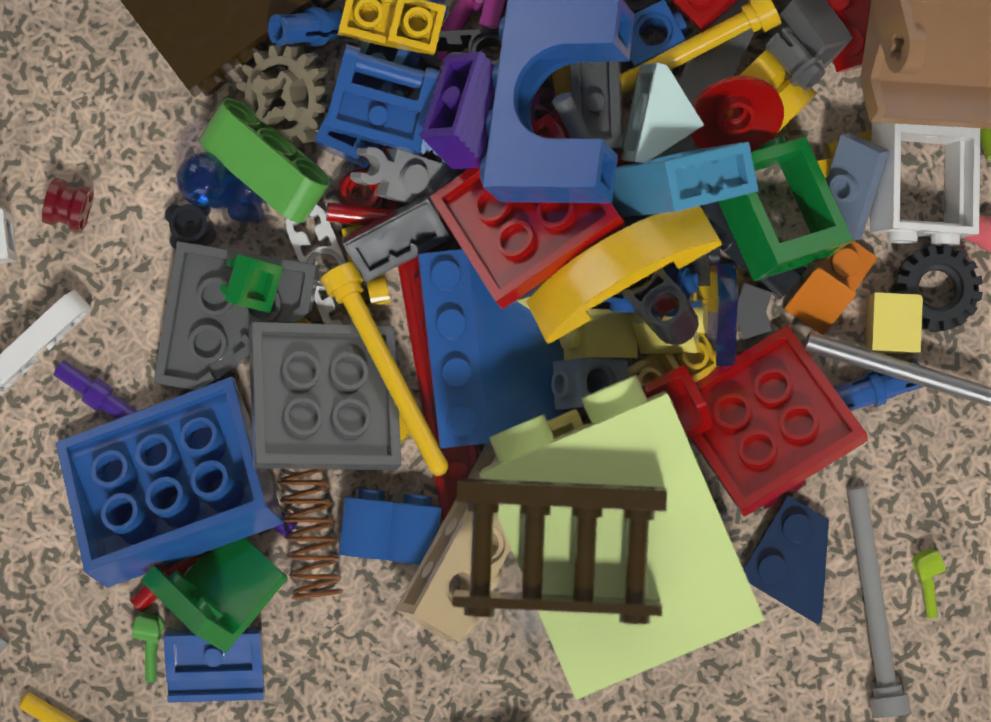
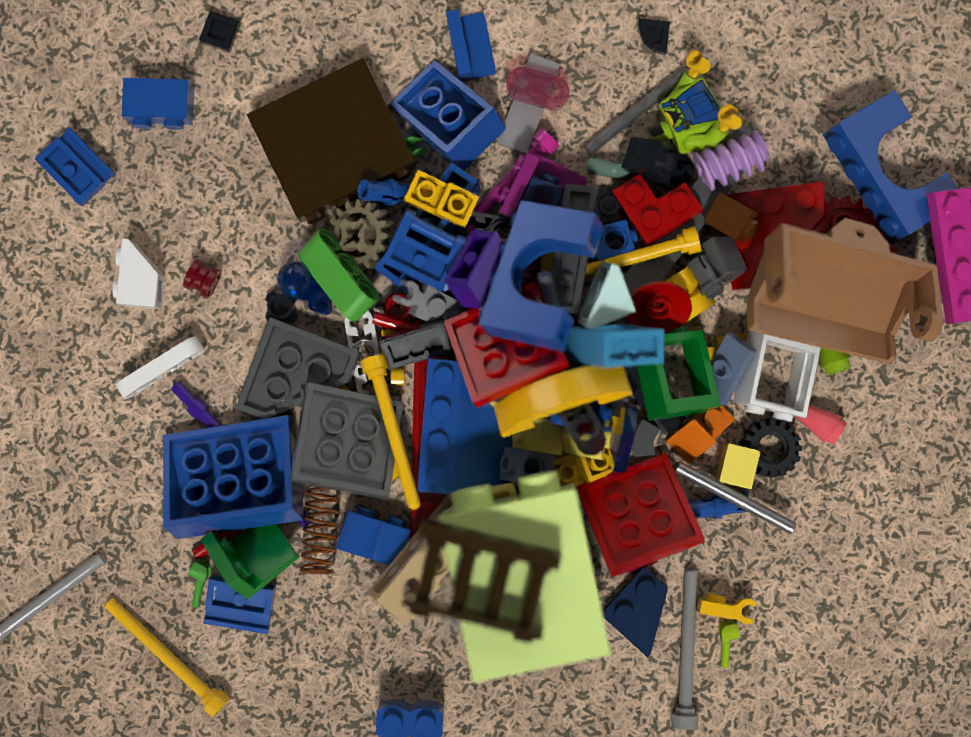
camera: 10 degrees right, 0 degrees up
(252, 283) = (313, 356): green tile -> none
(685, 399) = (587, 491): red panel -> none
(904, 531) = (717, 606): none -> yellow plate

